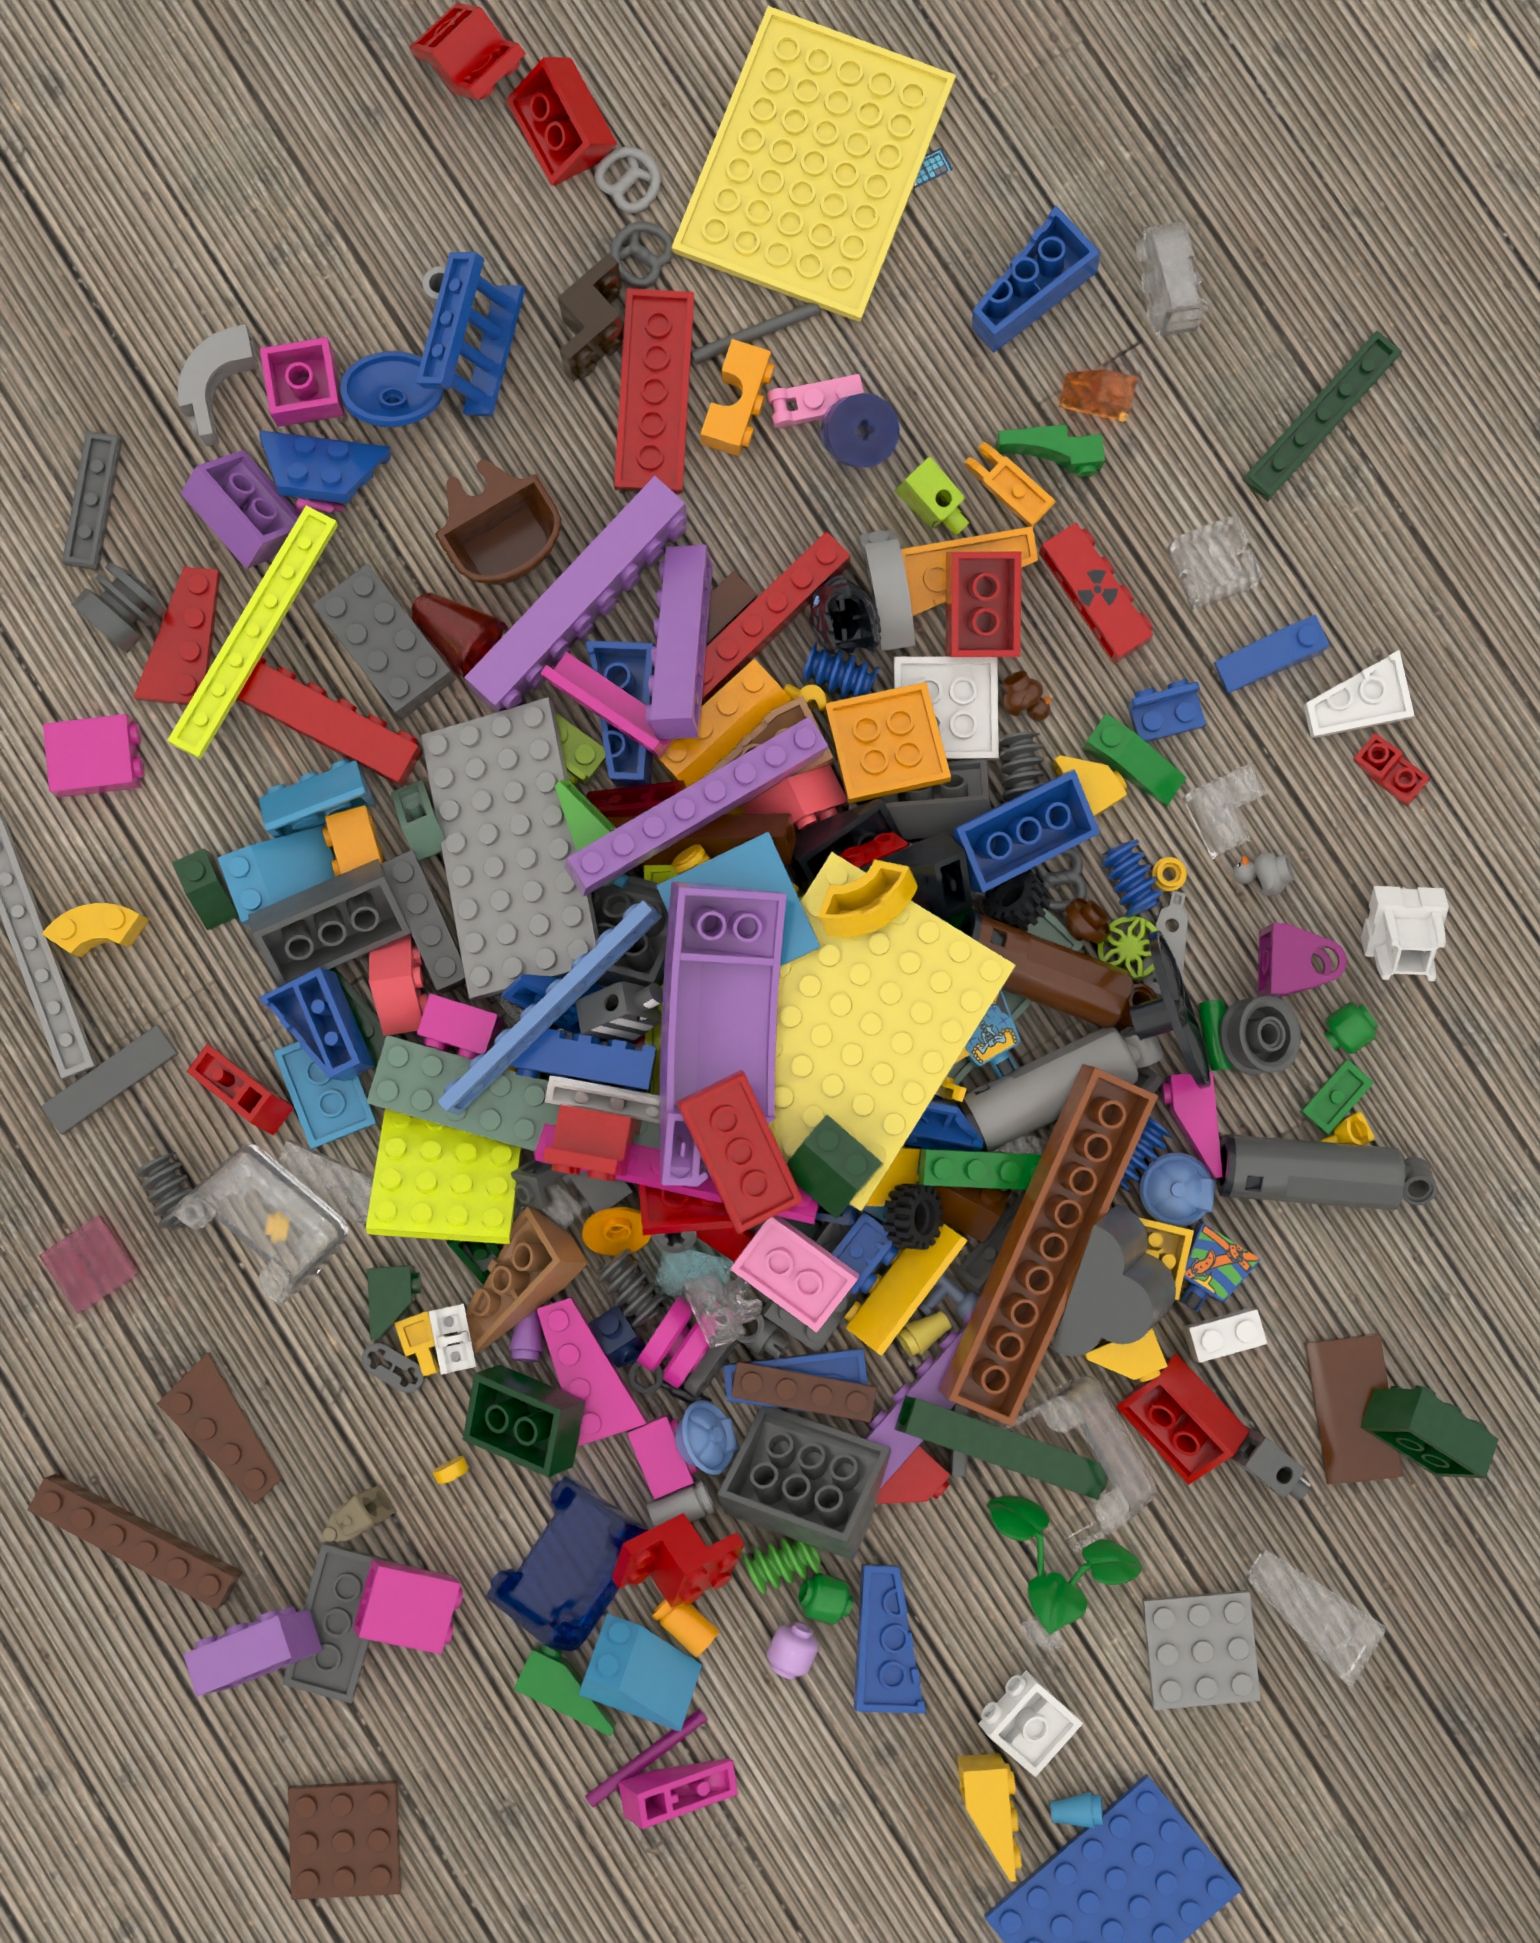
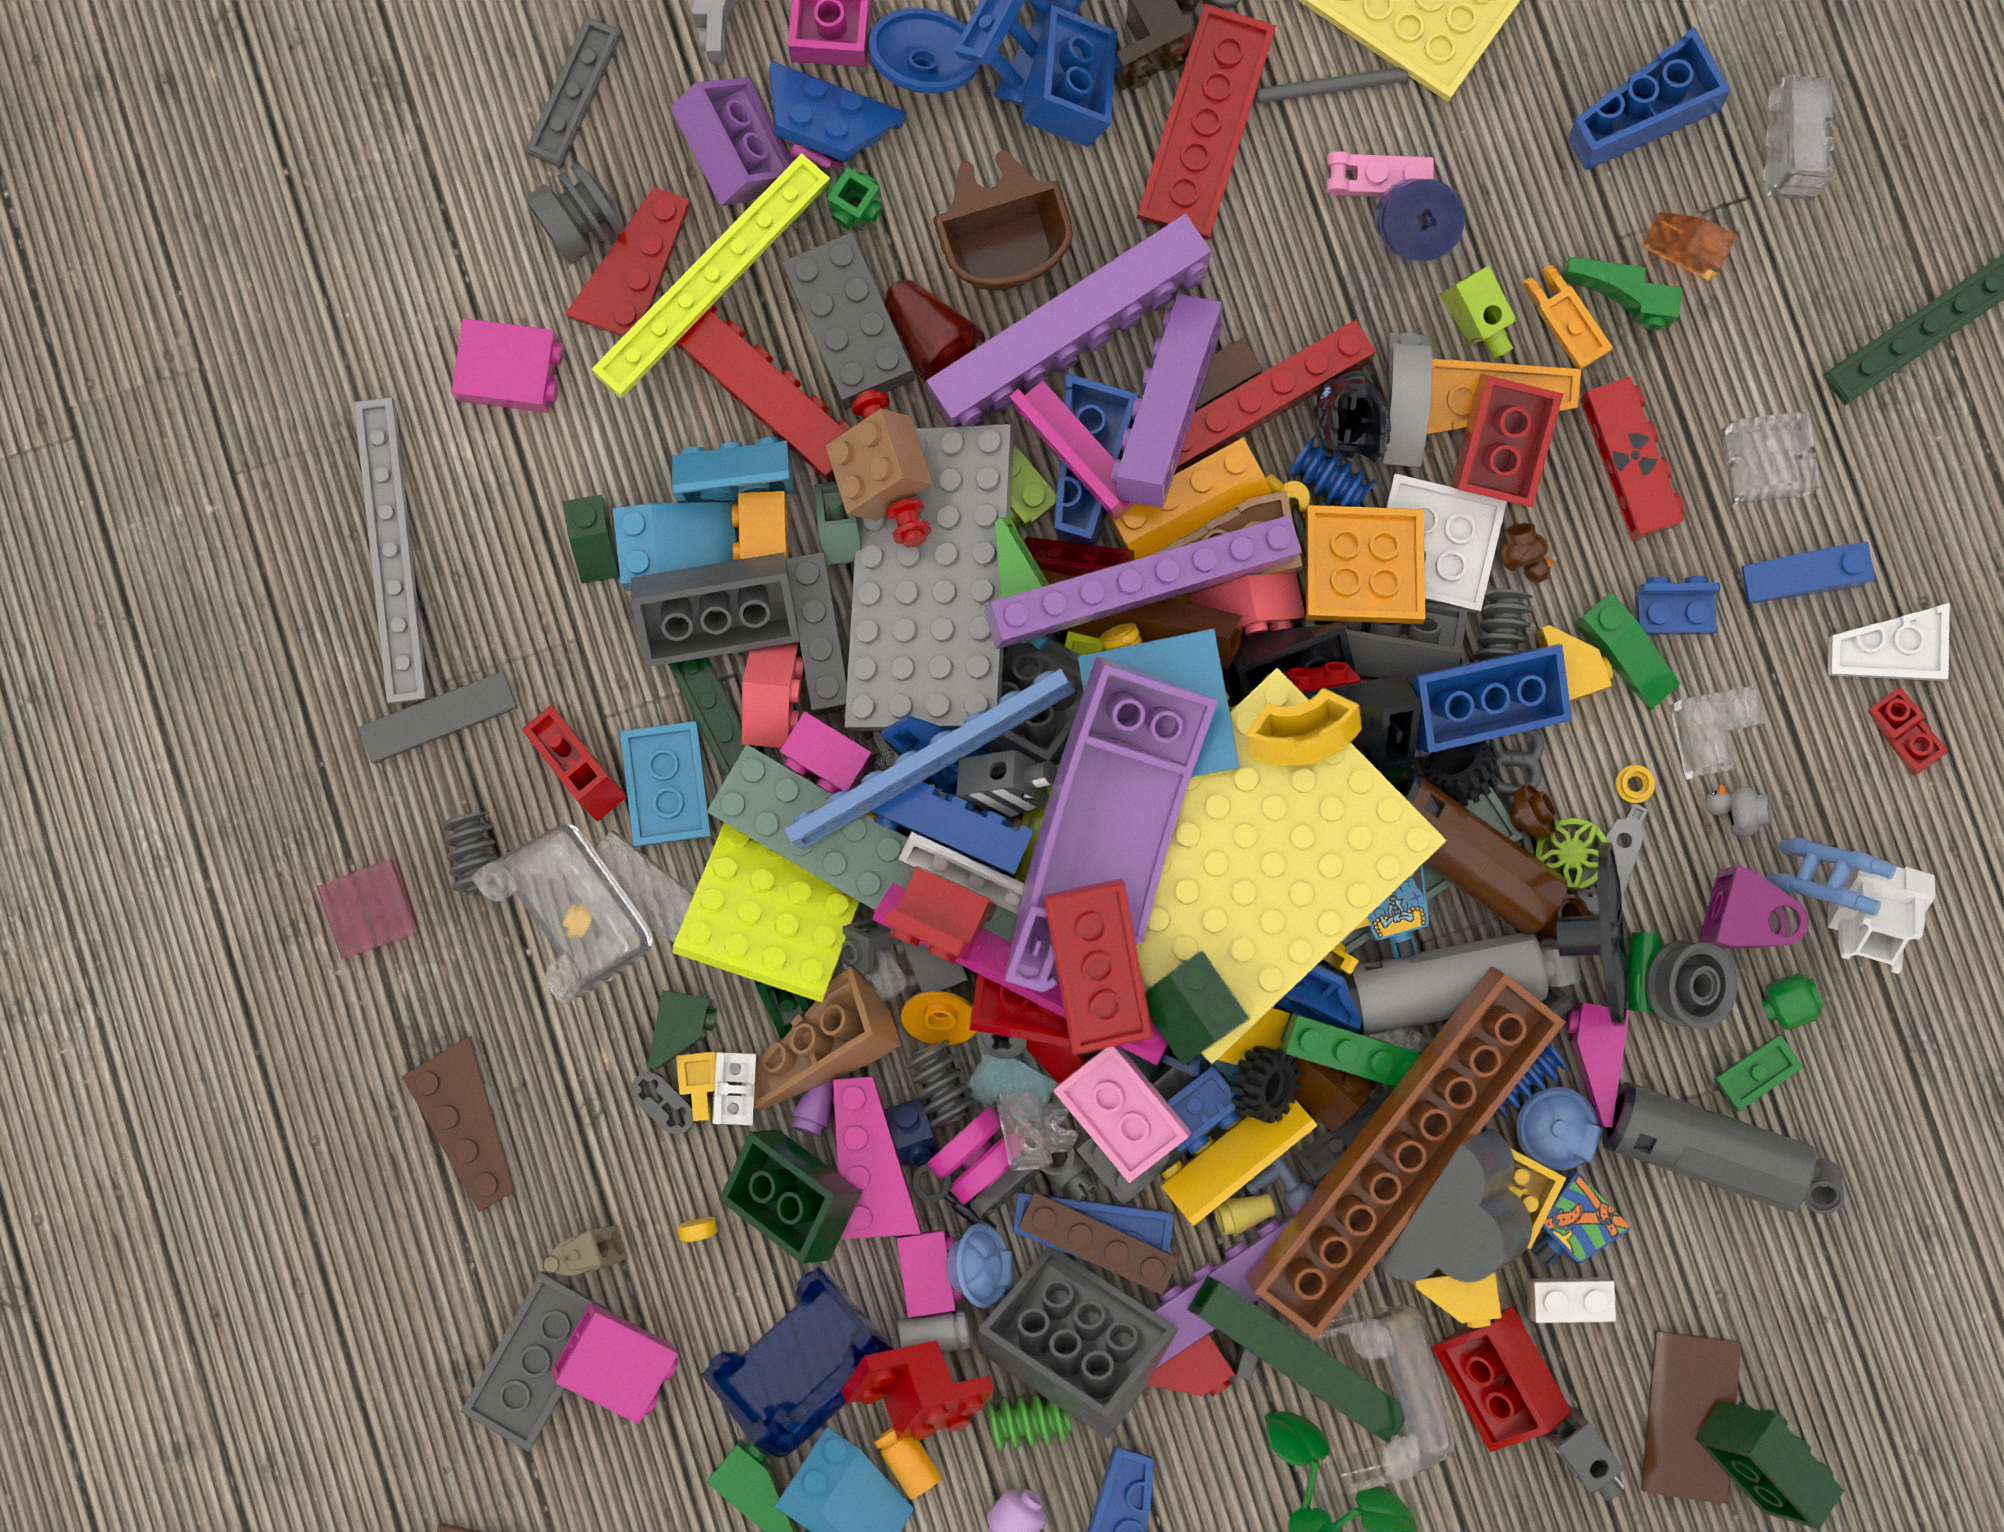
camera: 20 degrees right, 0 degrees up
(94, 925) = (462, 548): yellow brick -> none
(135, 1540) = (342, 1217): reddish brown brick -> none
(252, 1650) = (438, 1367): medium lavender brick -> none
(322, 1022) = (681, 712): blue wedge -> none
(357, 525) = (852, 188): none -> green brick
(445, 763) = (882, 468): none -> medium nougat brick
(526, 381) = (1071, 78): none -> blue slope
(729, 426) = (1277, 179): light orange arch -> none
(825, 1598) = (1065, 1472): green head -> none
(1131, 878) = (1593, 778): blue piece -> none
(1351, 1130) = (1766, 1113): yellow piece -> none
(1361, 923) = (1834, 890): none -> medium blue piece

